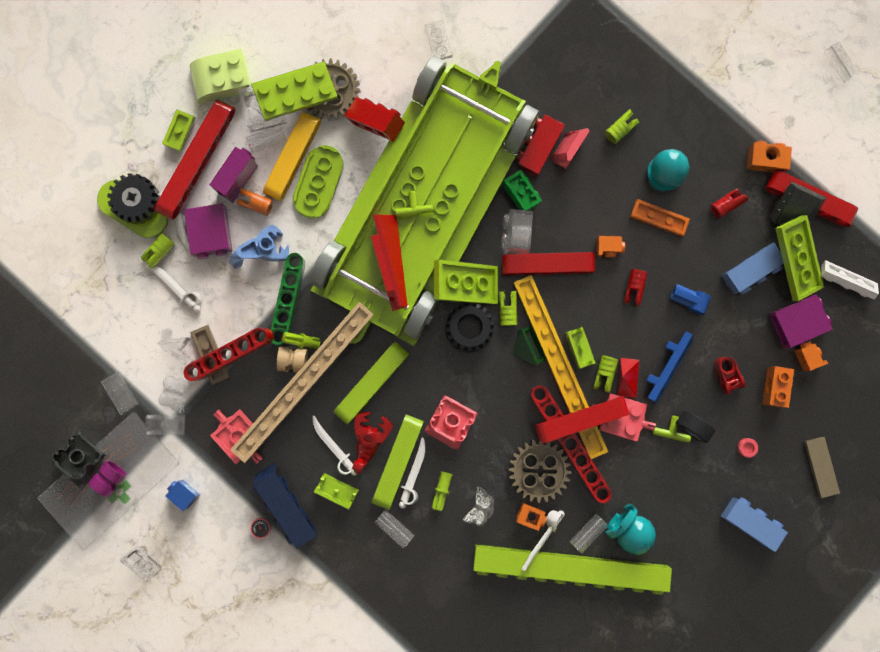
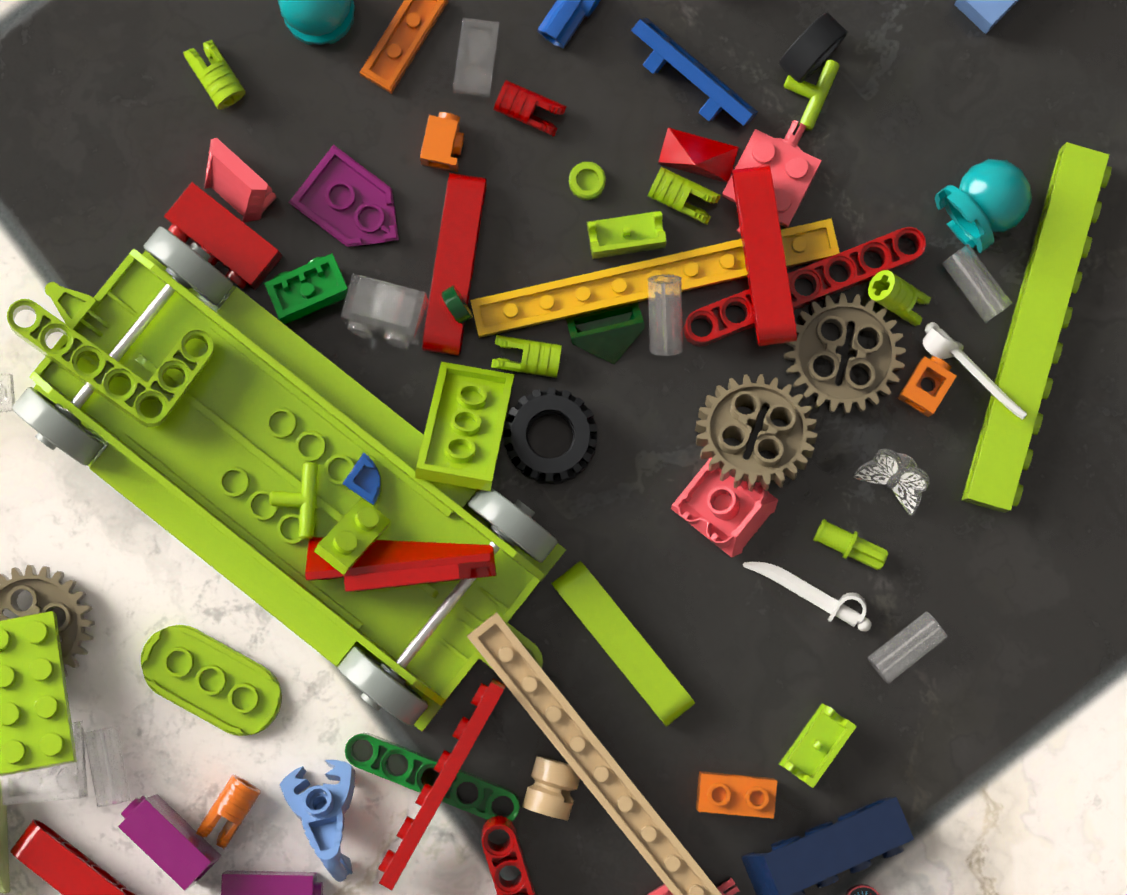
camera: 75 degrees left, 0 degrees up
(276, 299) = (432, 796): none -> red plate
(292, 156) = (151, 722): yellow beam -> none
(301, 340) = (518, 763): lime axle -> none
(304, 453) = (736, 795): none -> orange brick
(334, 448) = (738, 734): white sword -> none
(368, 439) = (730, 666): red animal -> none
(375, 118) = (110, 545): red brick -> none
(397, 462) = (782, 619): lime beam -> none
(399, 235) = (352, 536): none -> lime plate
(429, 237) = (365, 479): none -> blue tile
(461, 98) = (110, 368): none -> lime beam
(493, 414) = (788, 443): none -> dark tan gear
(527, 267) = (456, 305): none -> dark green tile
(542, 374) = (665, 314): none -> clear piece
(570, 205) = (348, 201): none -> magenta tile
(574, 492) = (897, 295): none -> lime hinge
(604, 323) = (587, 180): none -> lime tile
(656, 255) = (476, 57): none -> clear plate

